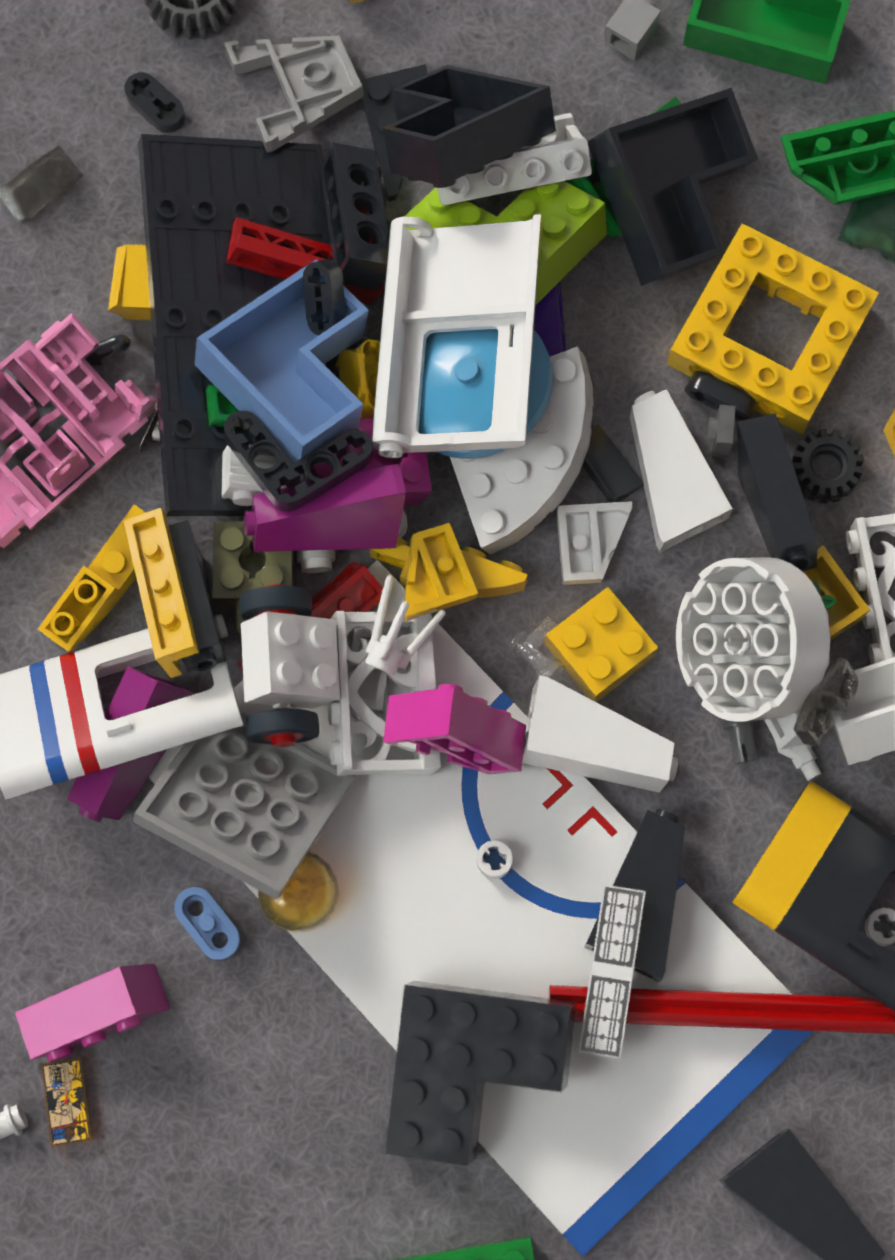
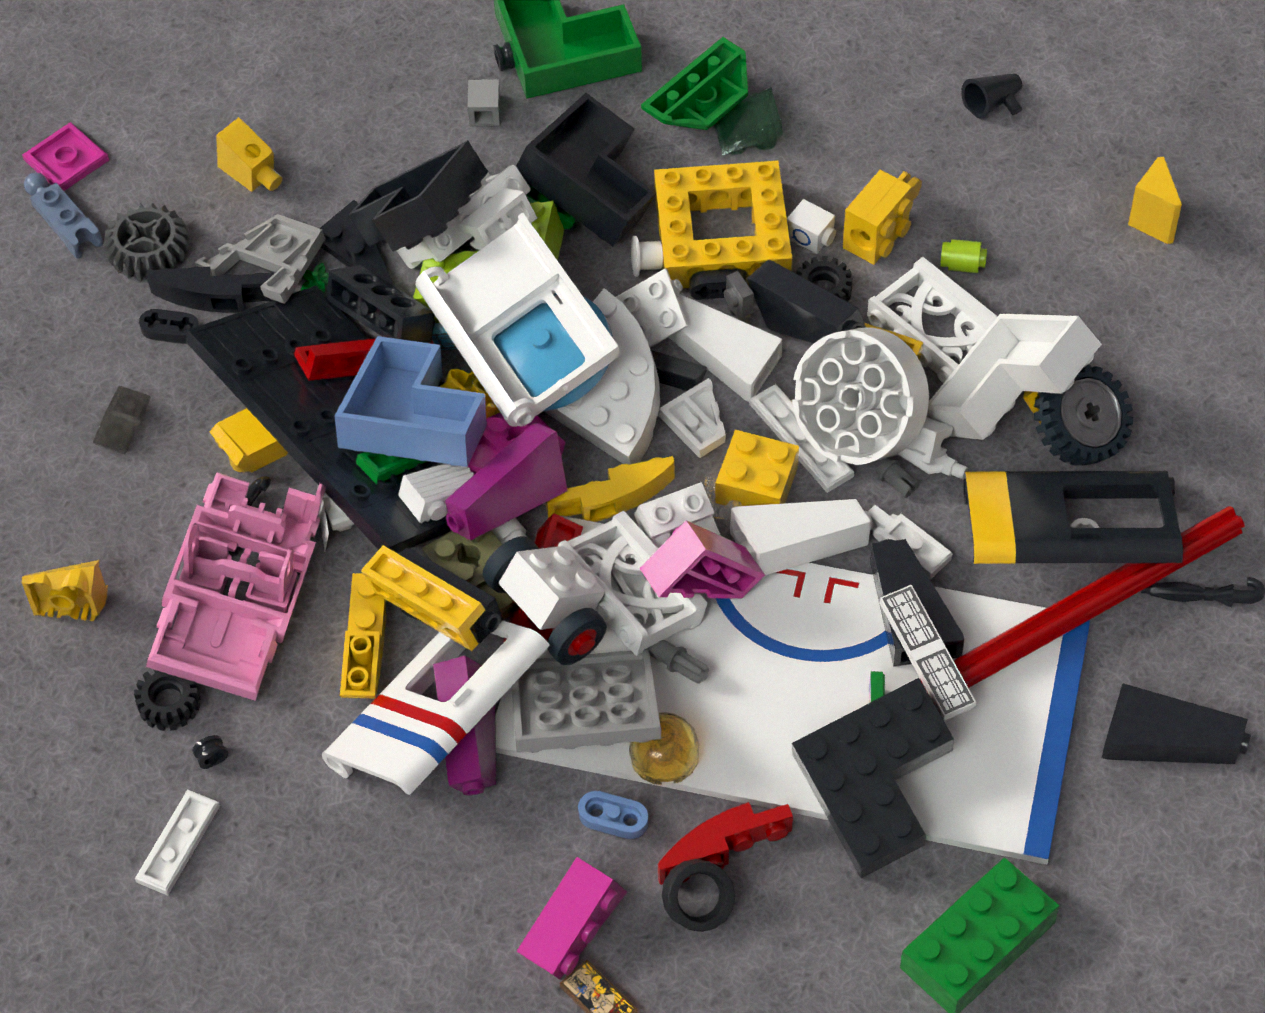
camera: 35 degrees left, 20 degrees down
(209, 80) = (202, 291): none -> black slope
(212, 1094) = (725, 901): none -> black tyre
(269, 1020) = (732, 829): none -> red slope
(288, 473) = (417, 461): black beam -> none
(323, 296) = (395, 358): black beam -> none
(329, 134) = (317, 277): none -> green plant
(377, 807) = (678, 660): none -> dark grey axle
(386, 652) = (615, 550): white plant -> none
(436, 573) = (610, 485): yellow wing -> none
(479, 657) = (668, 512): none -> white brick
(503, 850) = (789, 637): white bush -> none
(525, 193) = (496, 216): none -> white hinge
(538, 974) = (876, 685): none -> green tile
(626, 389) = (656, 306): none -> white hinge
(669, 316) = (645, 255): none -> white piece
(675, 577) = (779, 415): none -> white tile
(699, 814) = (929, 552): none -> white hinge
(832, 693) = (940, 399): clear smoke slope -> none
(863, 388) = (811, 226): none -> white brick

